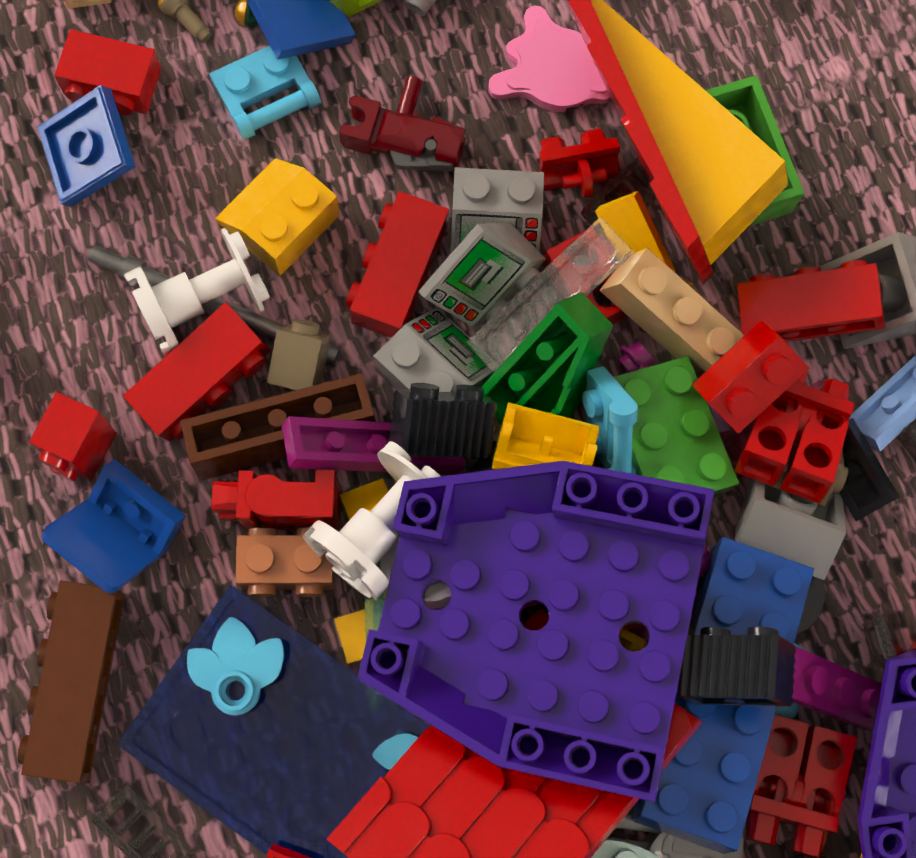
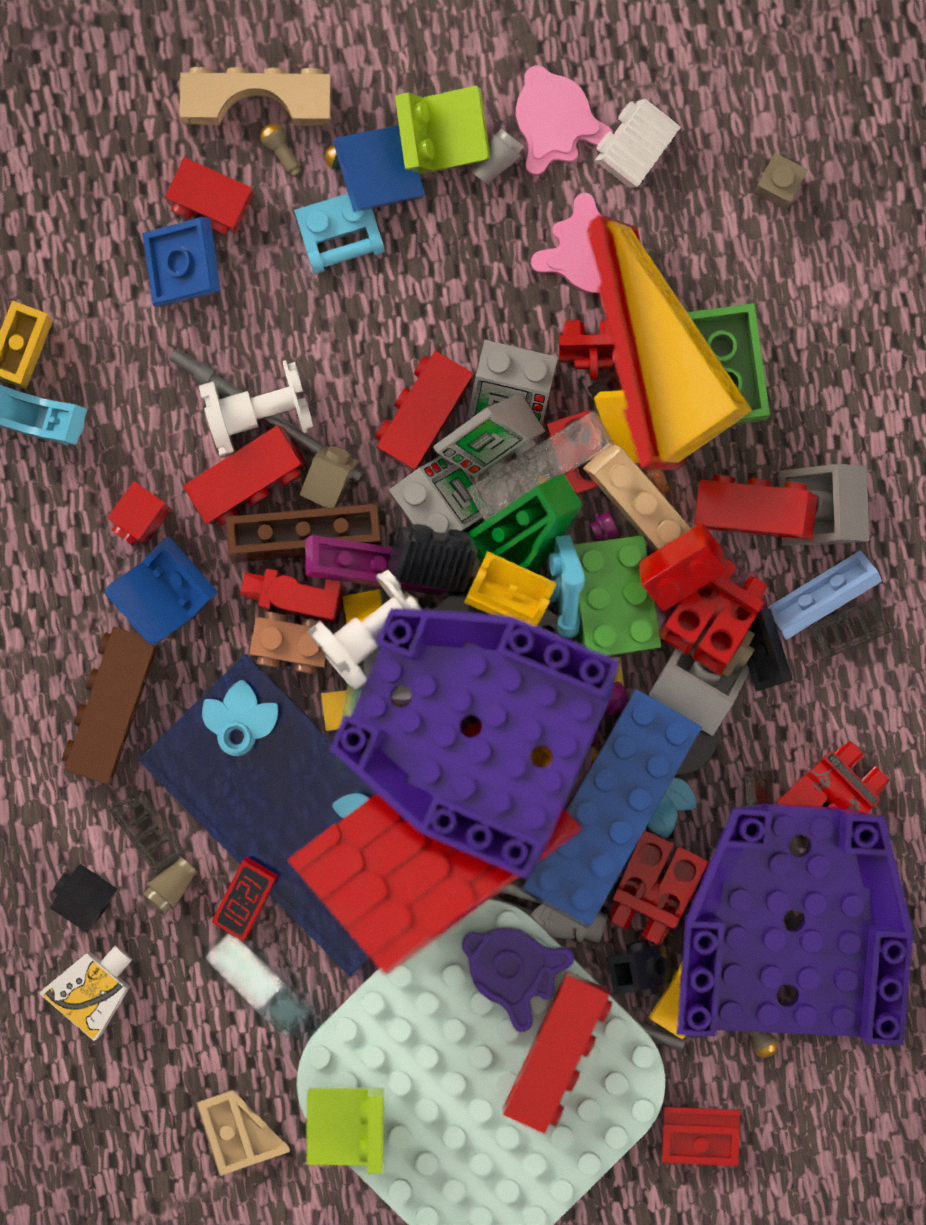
camera: 20 degrees right, 10 degrees up
(281, 214) = (332, 346): yellow slope -> none
(409, 139) = (453, 299): dark red piece -> none
(737, 668) = (614, 794): black brick -> none
(835, 690) = (675, 811): magenta plate -> none

